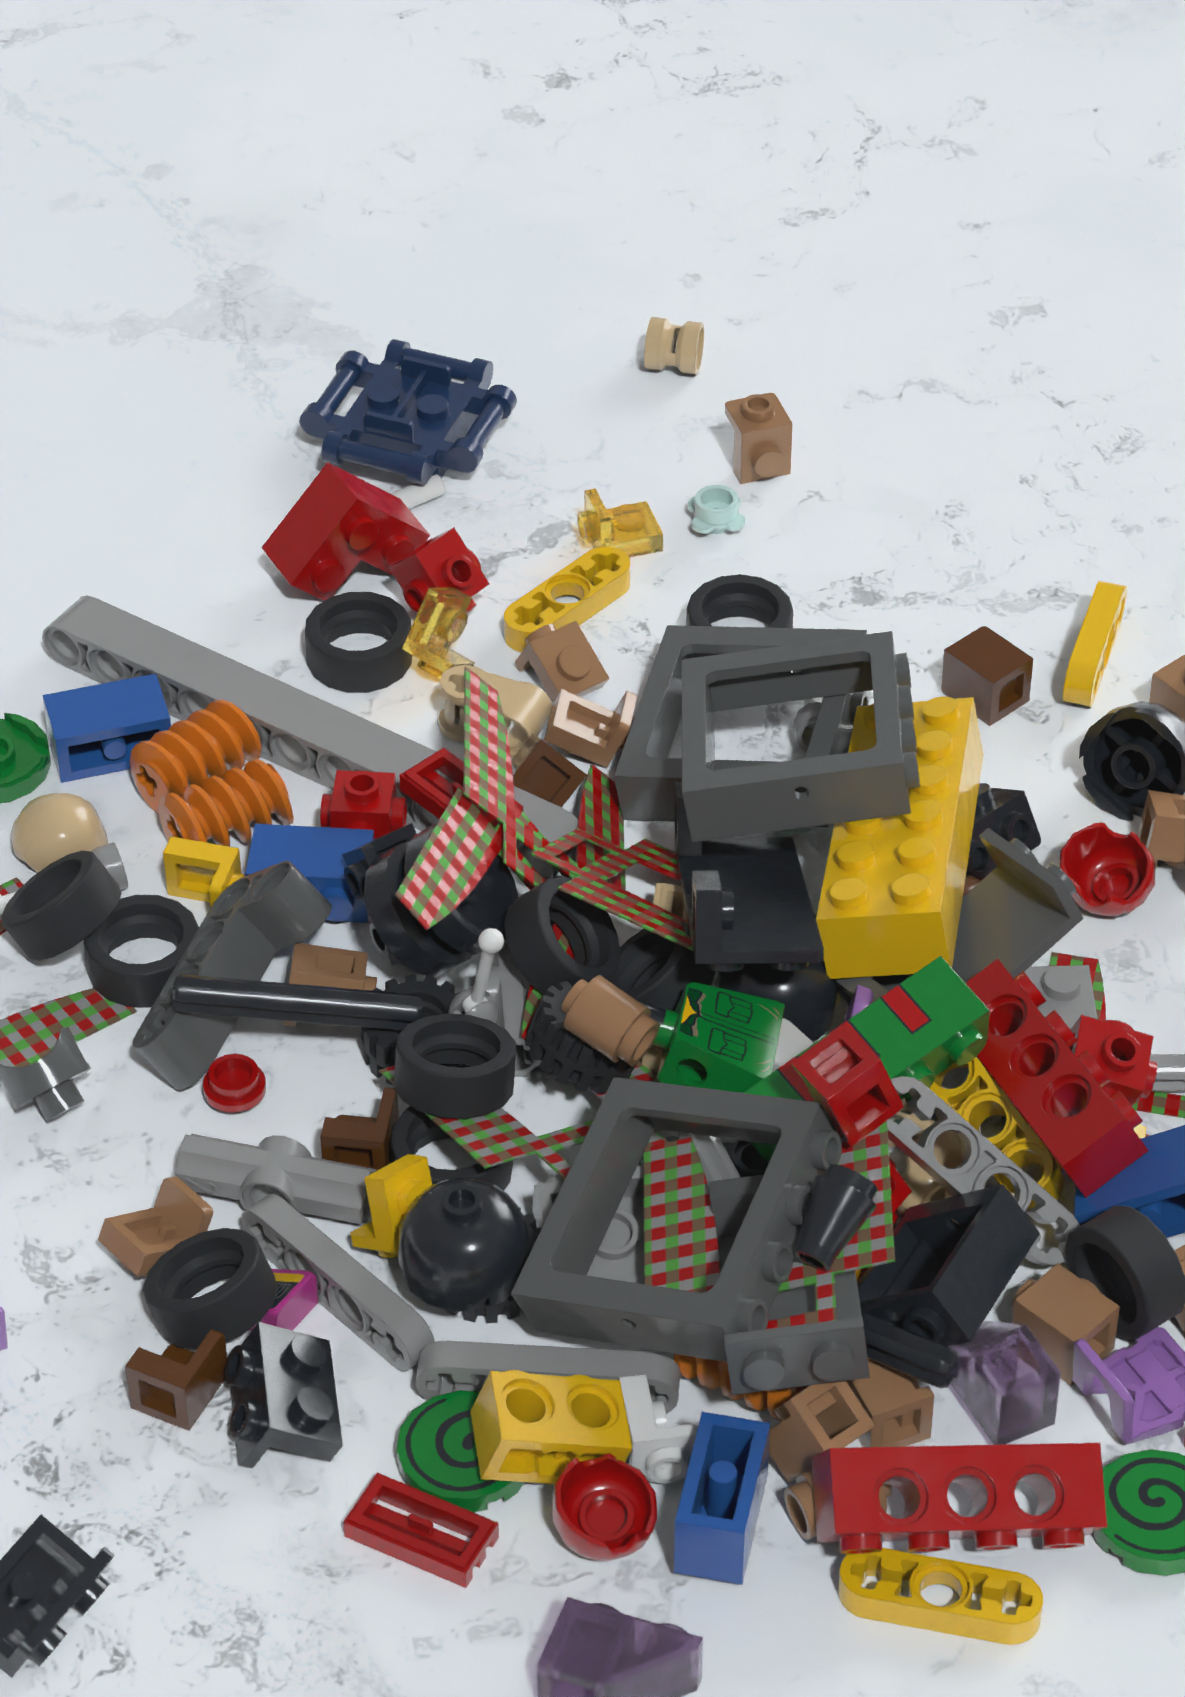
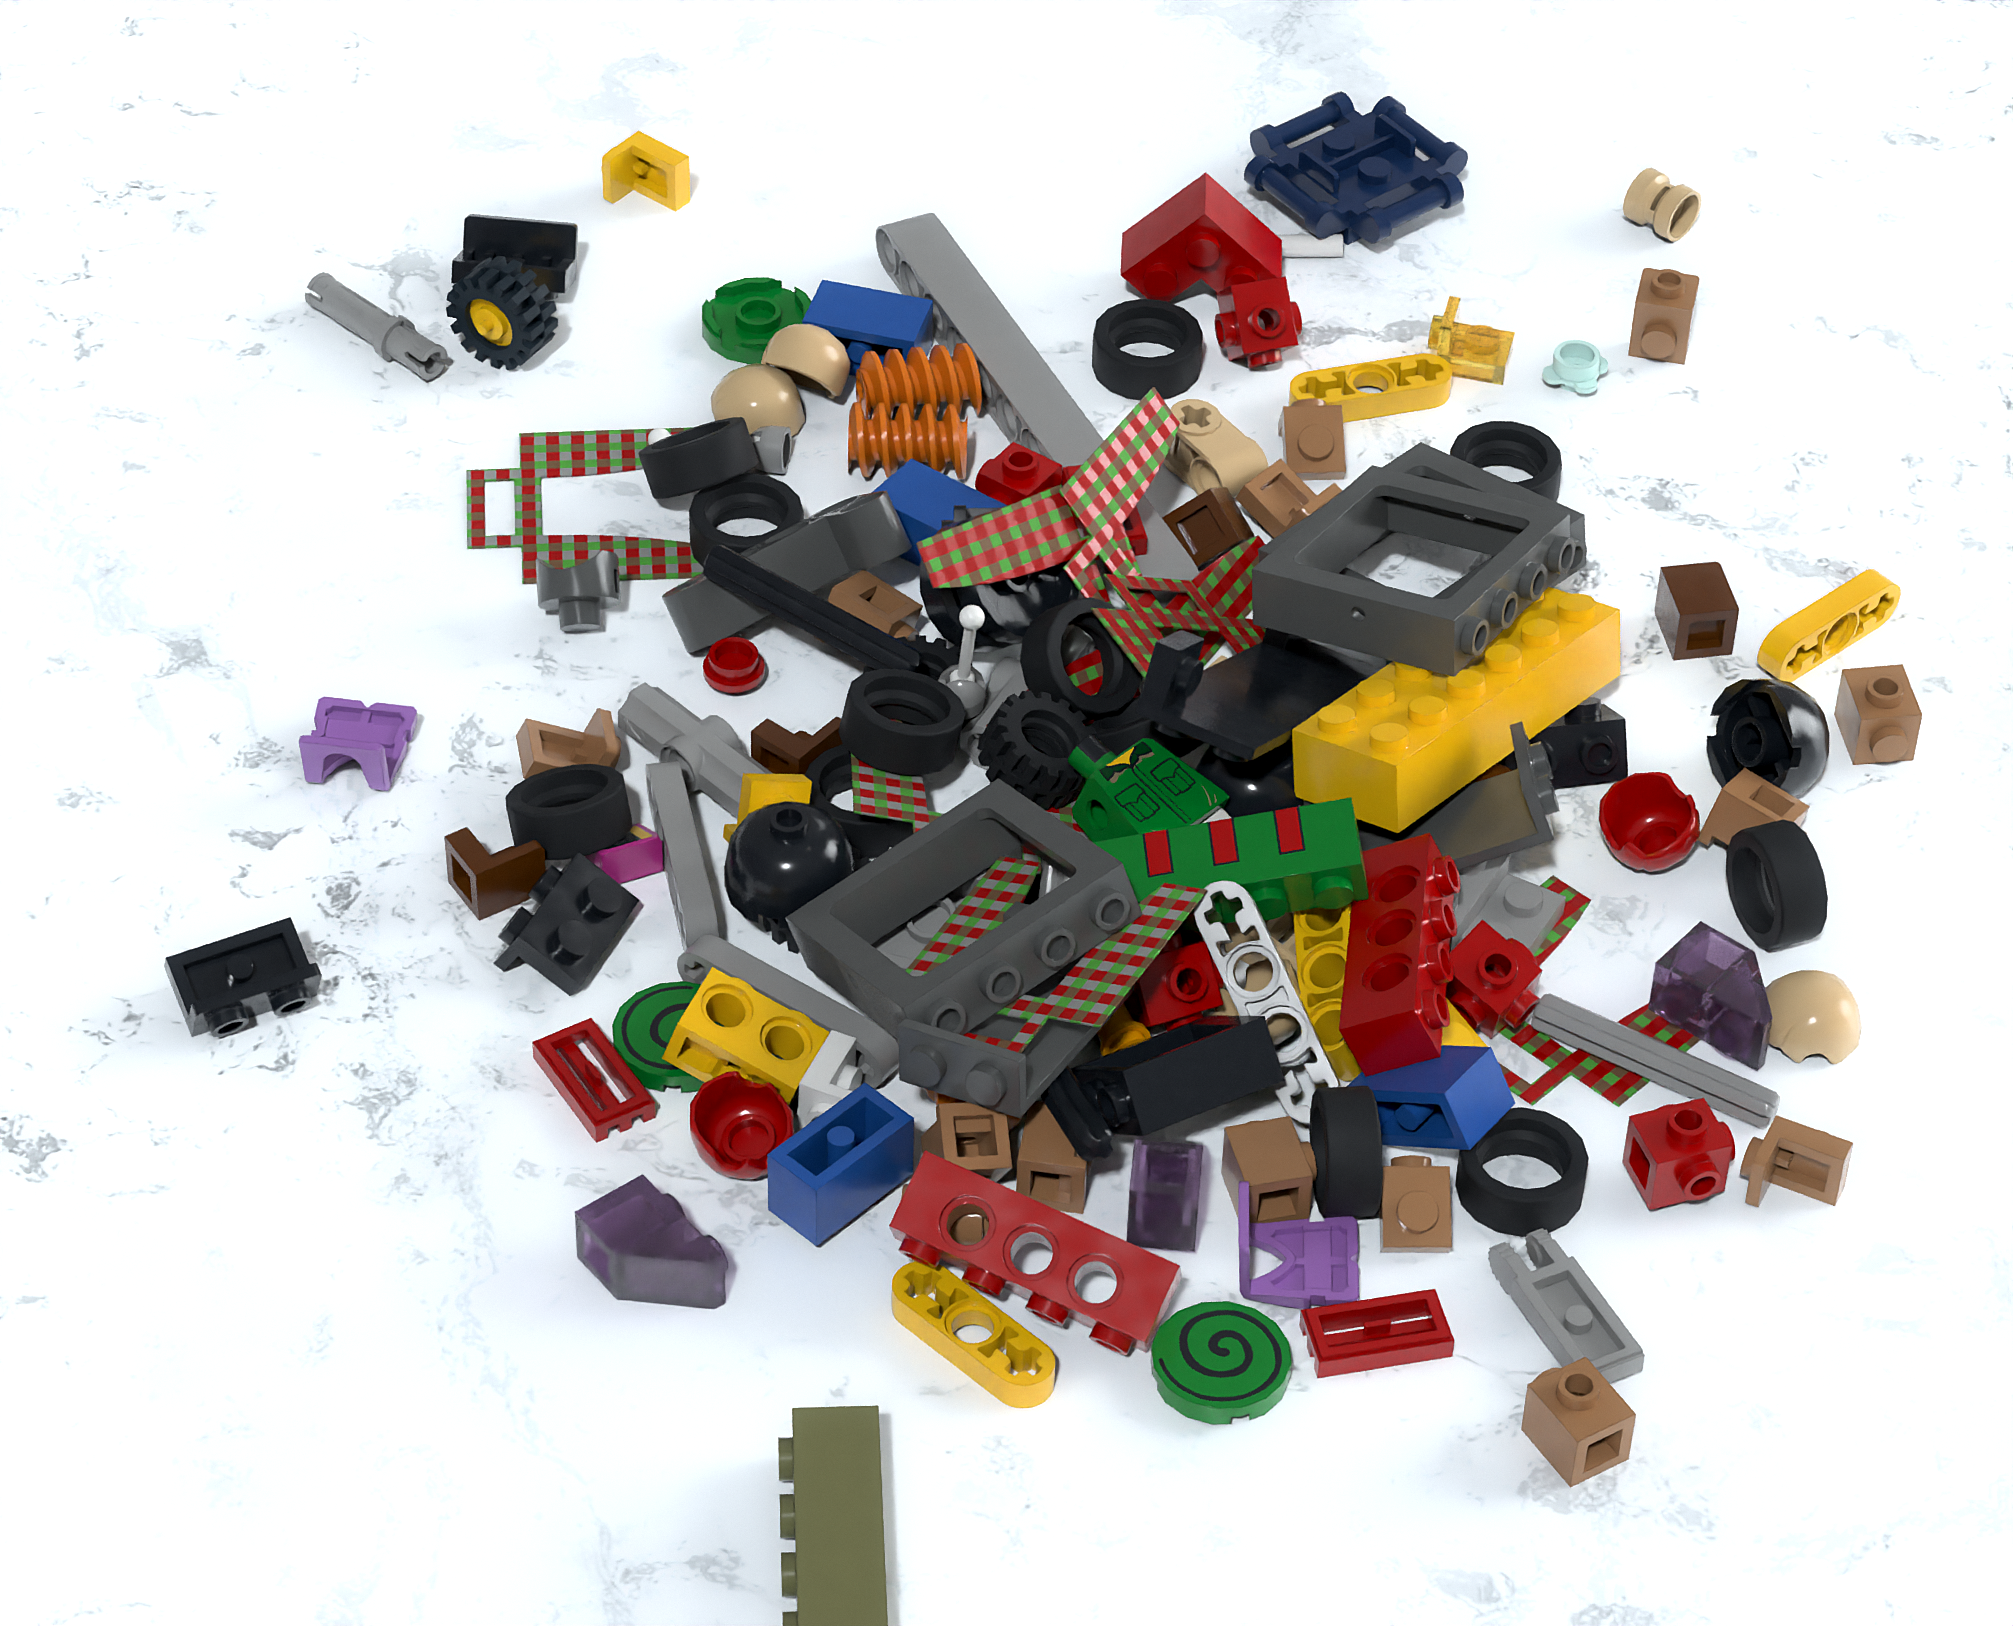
camera: 30 degrees right, 0 degrees up
(82, 769) = (810, 357): none -> tan hair
(199, 868) = (842, 473): yellow bracket -> none
(436, 628) = (1215, 364): clear yellow bracket -> none
(609, 1020) = (1043, 735): medium nougat brick -> none
(834, 1214) = (1073, 965): black cone -> none
(849, 1084) = (1158, 860): red brick -> none

